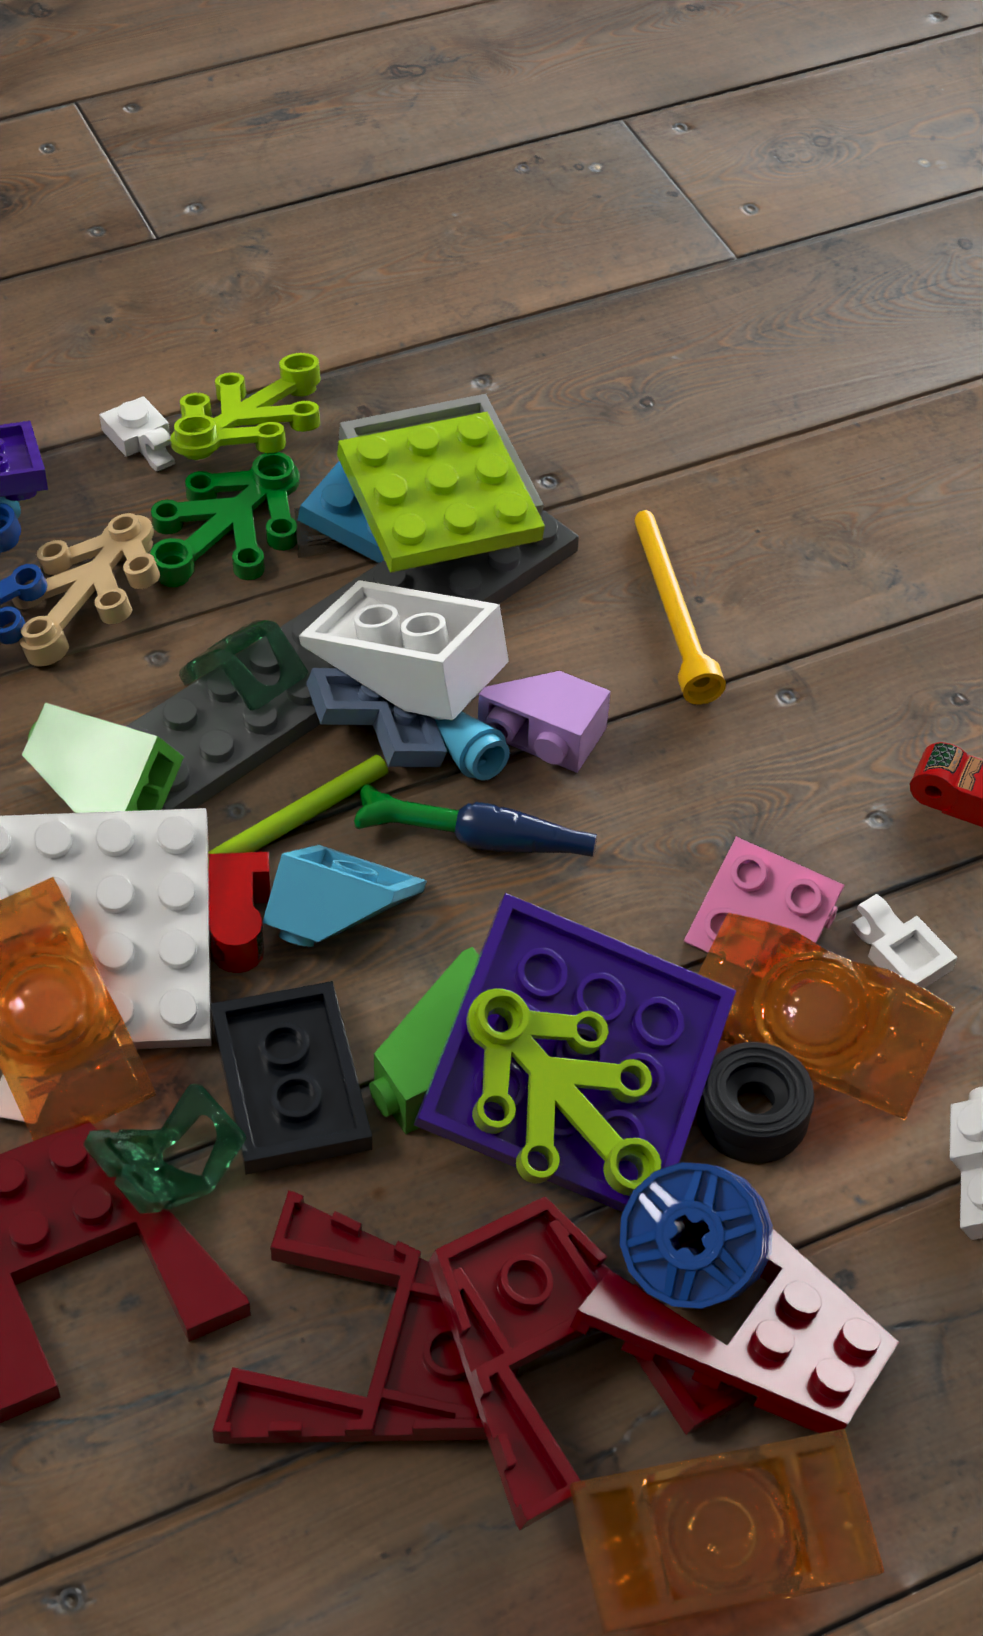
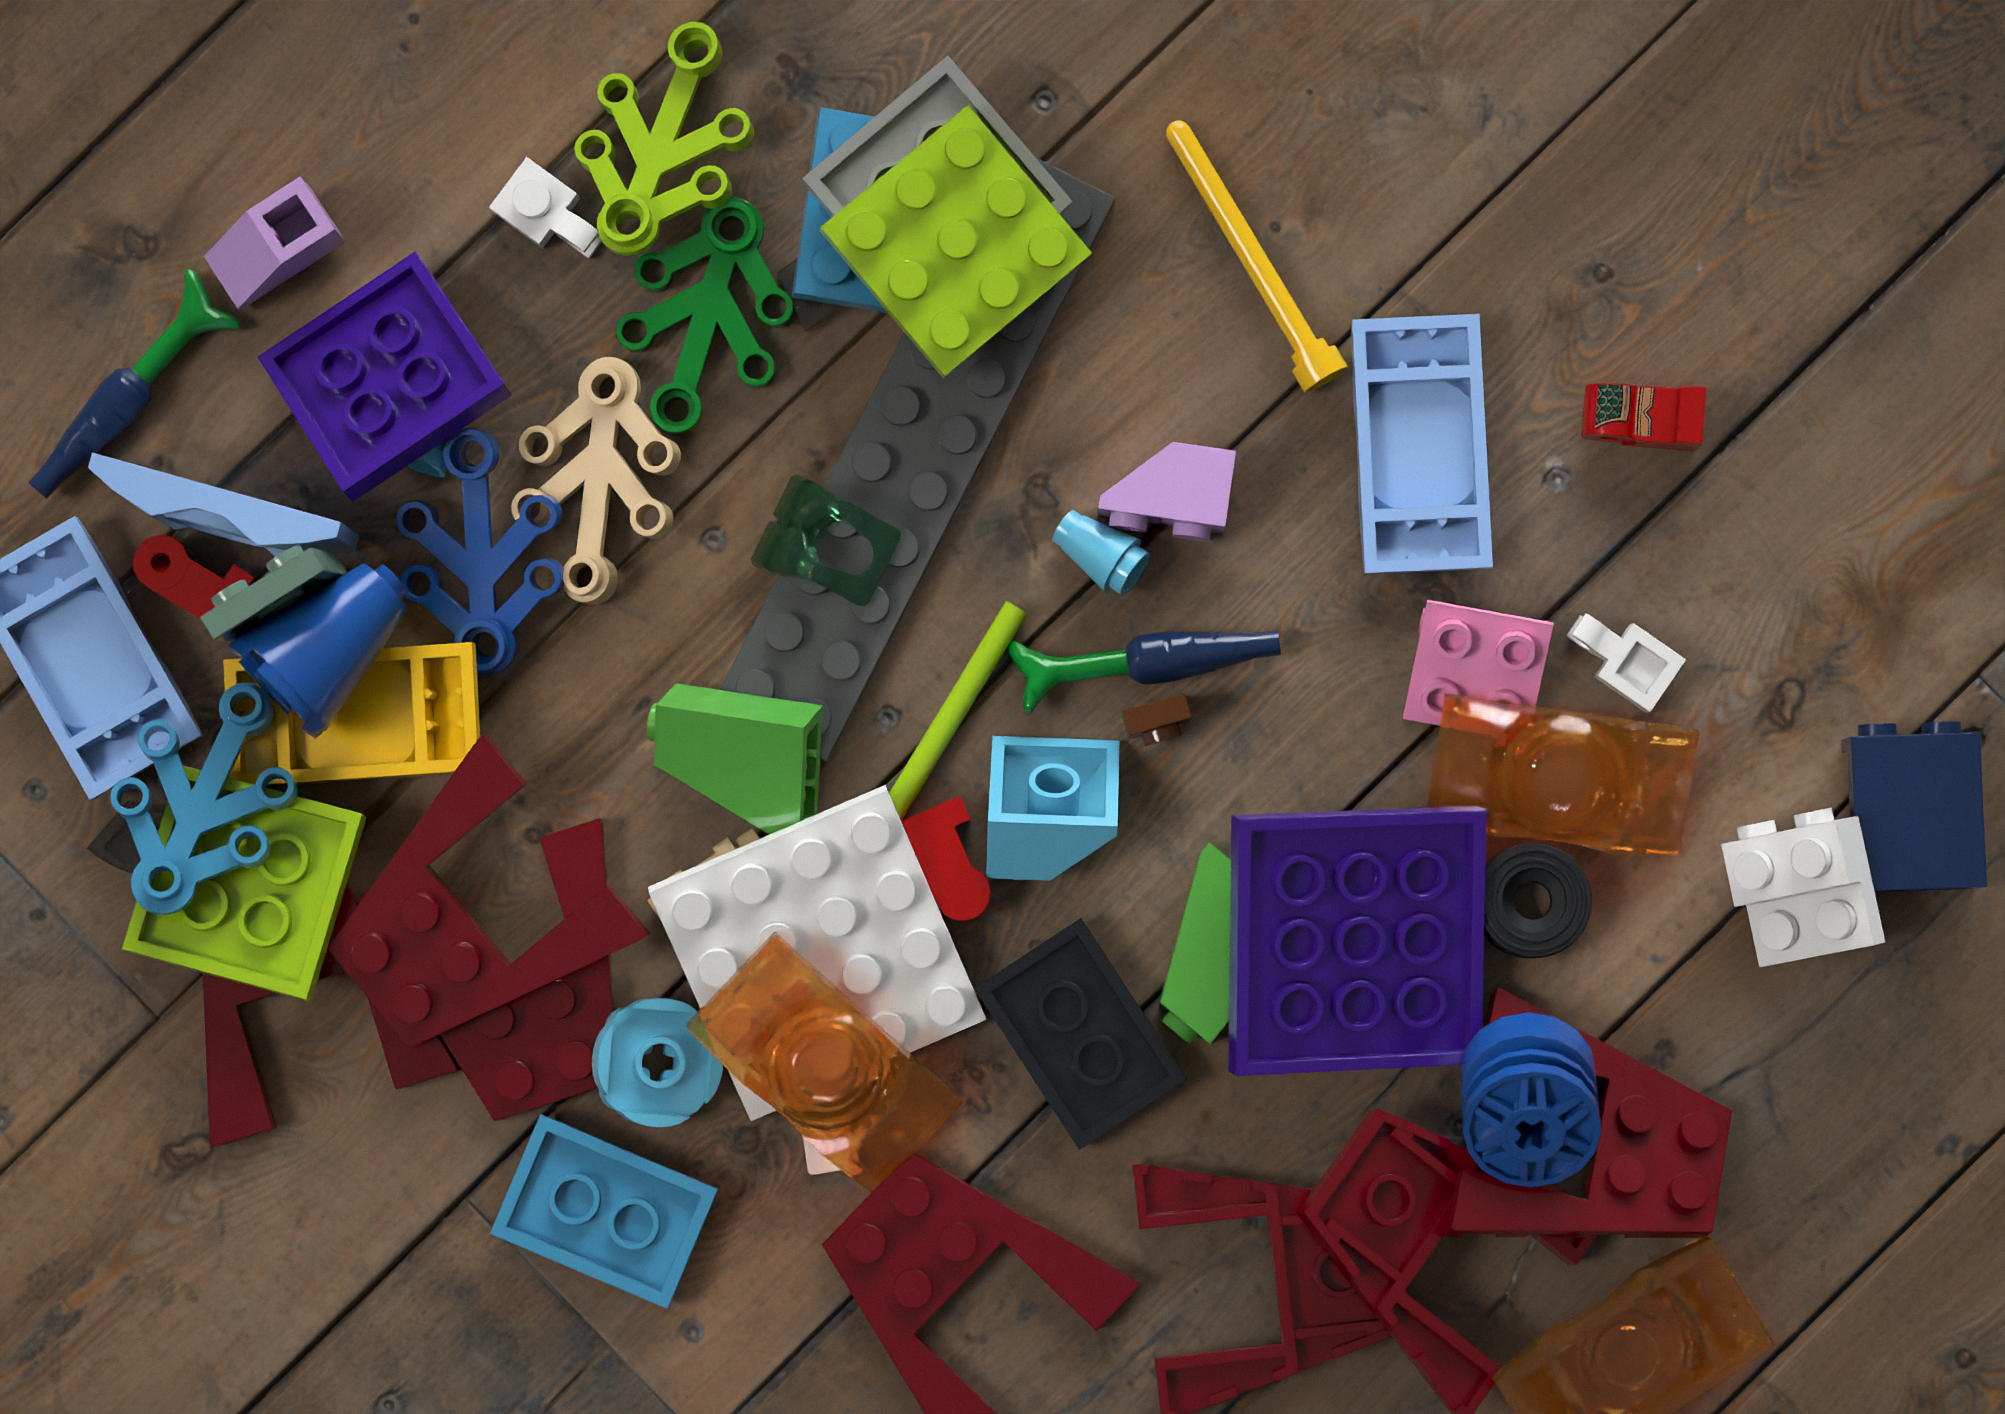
camera: 10 degrees left, 35 degrees up
(138, 1162) = (998, 1200): clear green piece -> none
(404, 736) = (998, 533): sand blue plate -> none
(412, 645) = (997, 471): white slope -> none
(465, 860) = (1157, 720): none -> reddish brown plate
(555, 1083) = (1350, 993): lime plant -> none
(769, 748) = (1421, 444): none -> light blue slope

